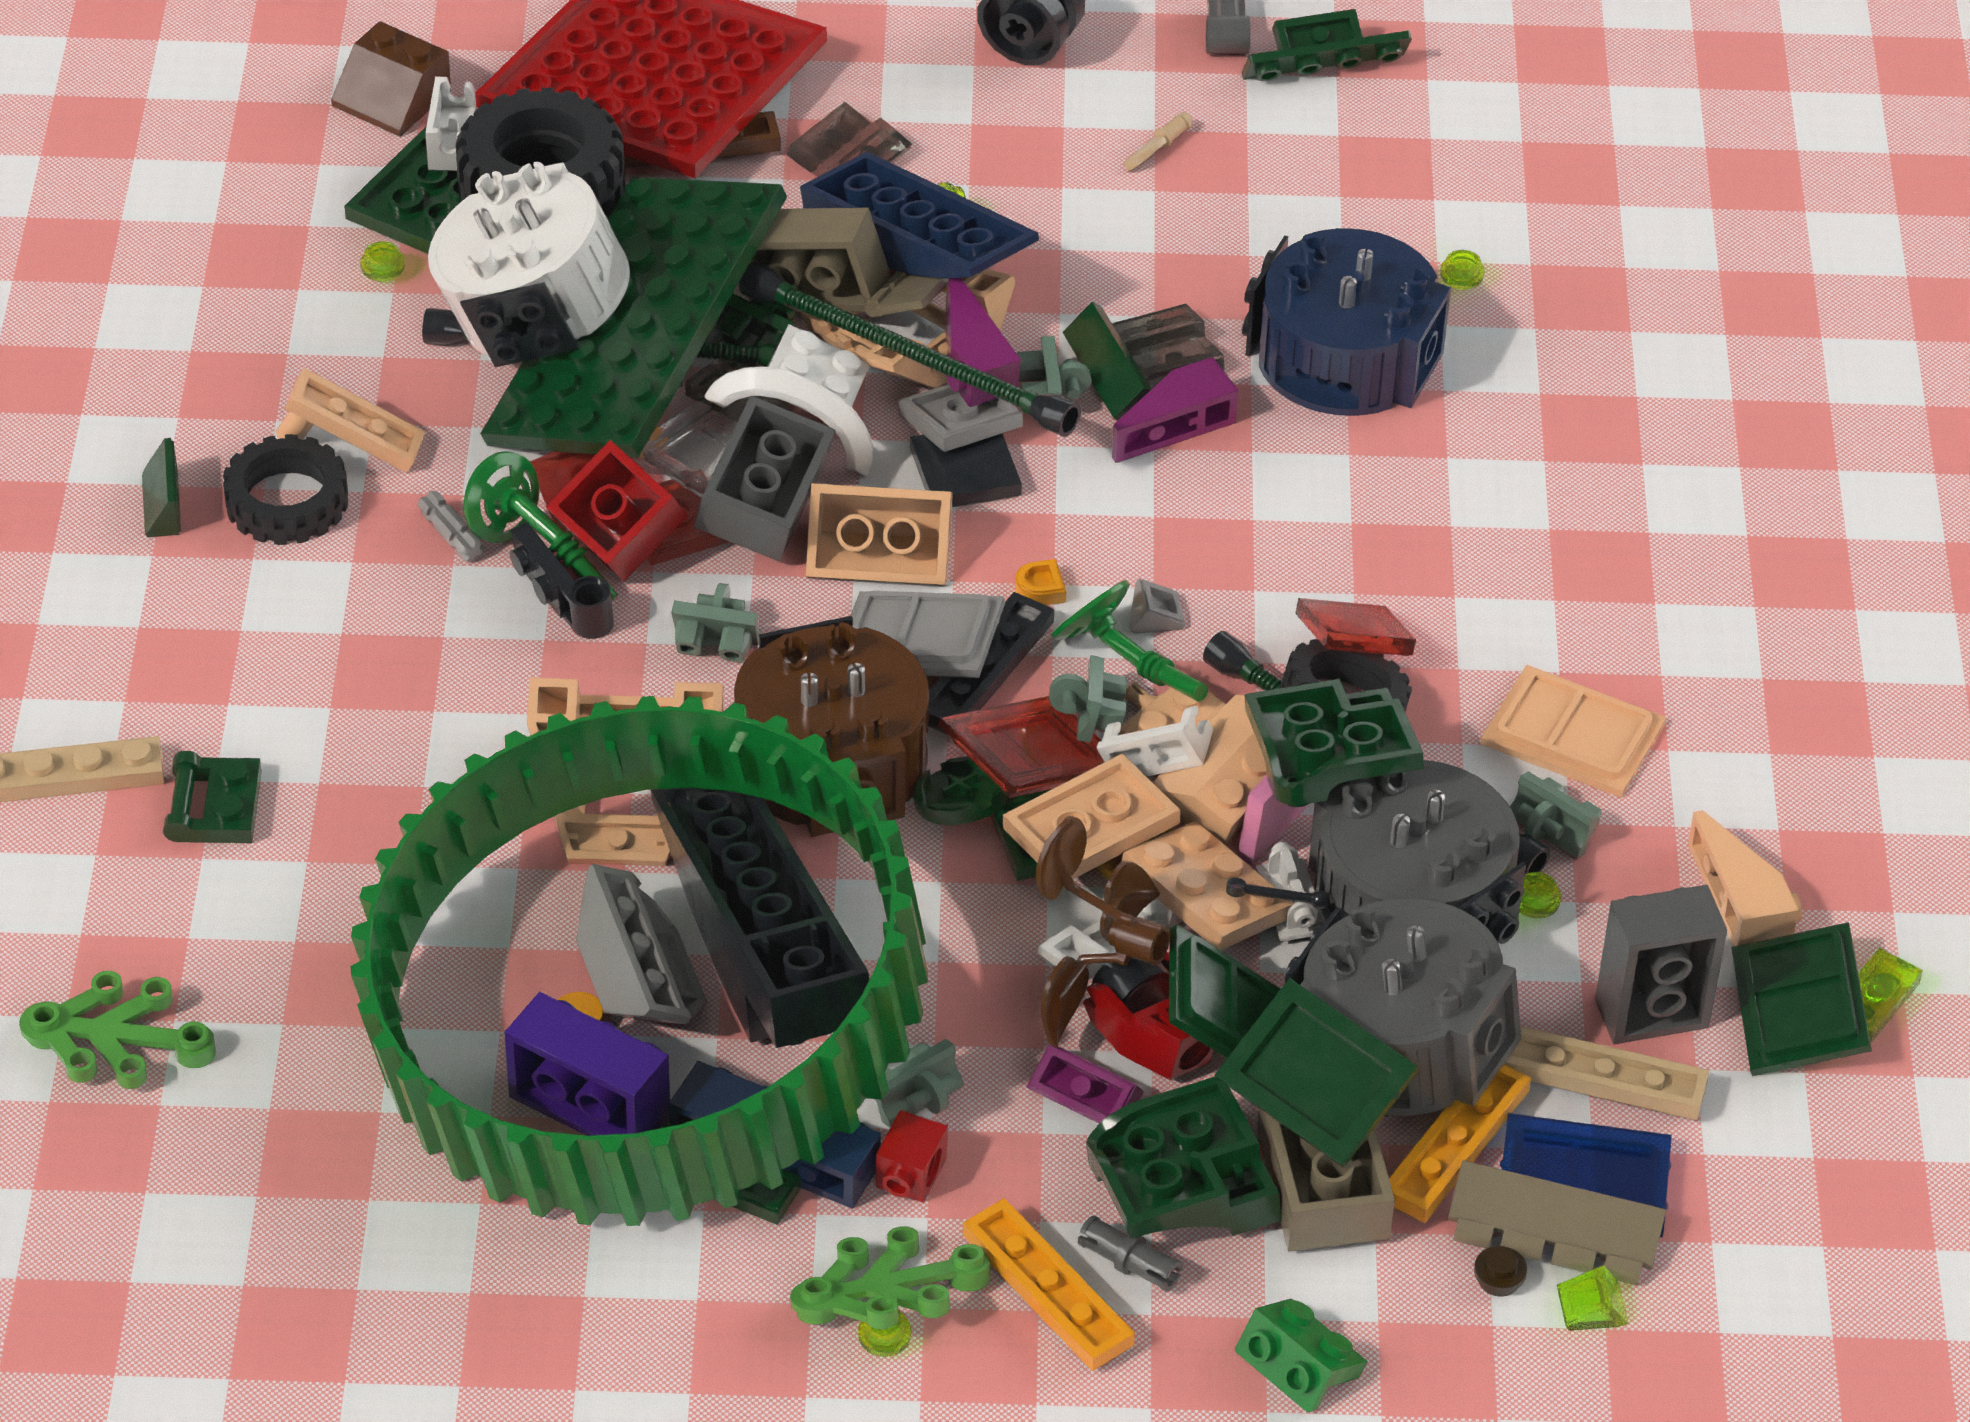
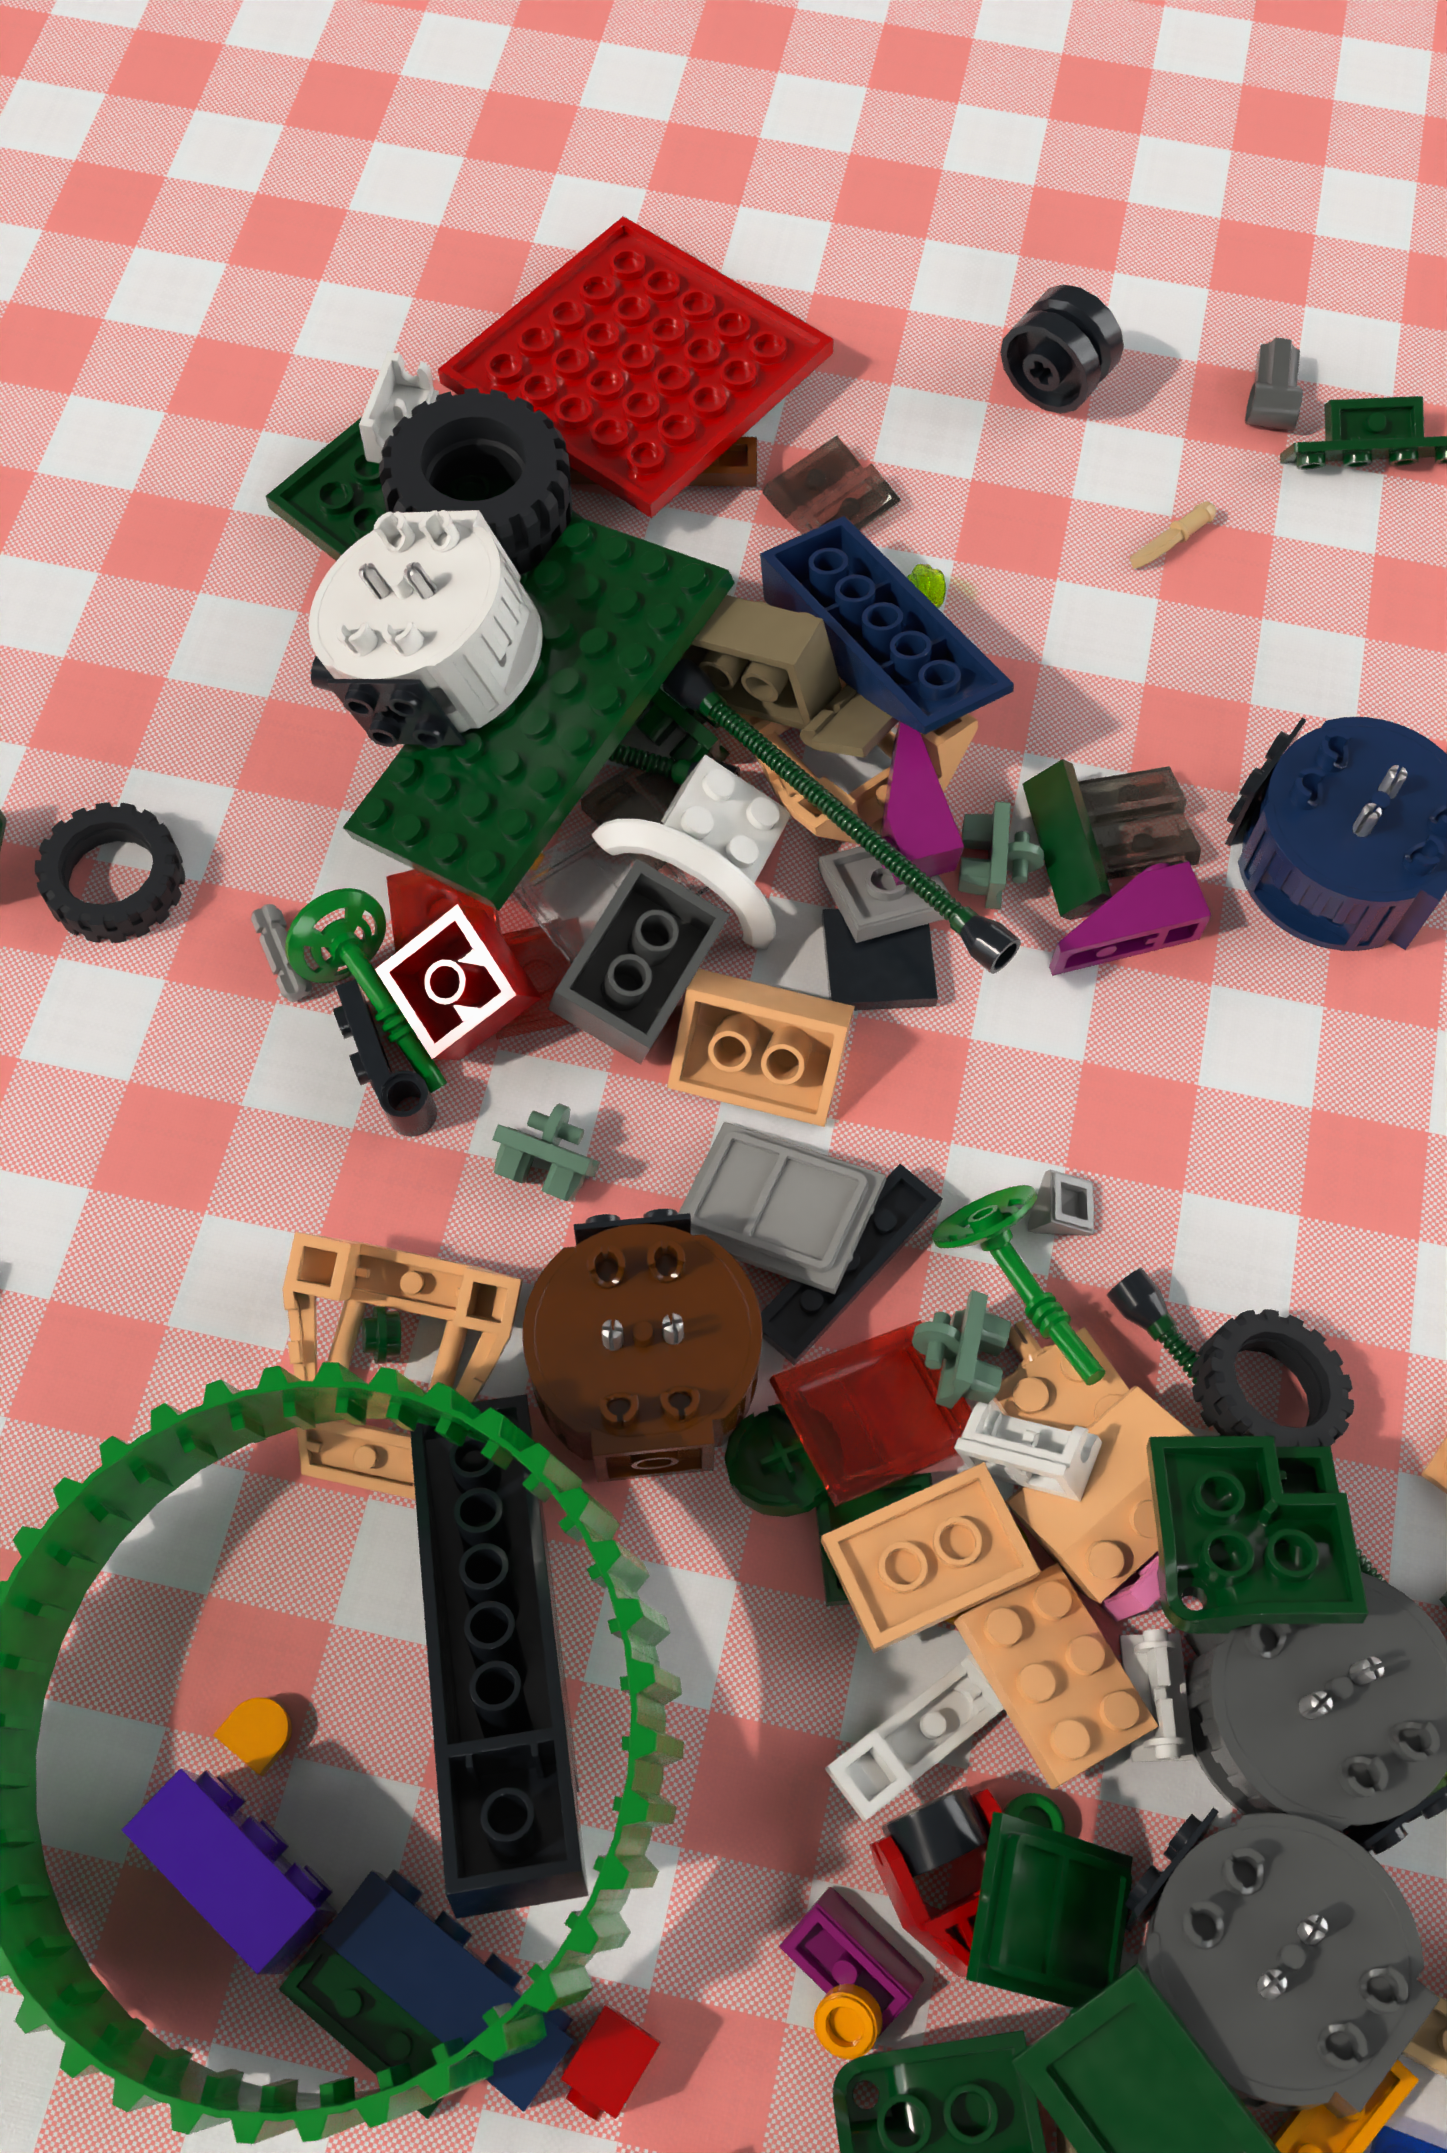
camera: 10 degrees right, 20 degrees up
(351, 419) = (197, 797): light nougat piece -> none
(382, 261) = (292, 574): clear neon green plate -> none
(390, 78) = (351, 332): slope -> none
(634, 951) = (343, 1674): light grey wedge -> none
(921, 1082) = (653, 1936): sand green hips -> none
(1041, 582) = (935, 1144): light orange tile -> none
(1086, 1109) = (848, 2021): none -> light orange tile
(1124, 898) = (943, 1821): reddish brown plant -> none
(1237, 888) = (1092, 1709): black hinge -> none
(1355, 627) = (1298, 1293): clear red tile -> none

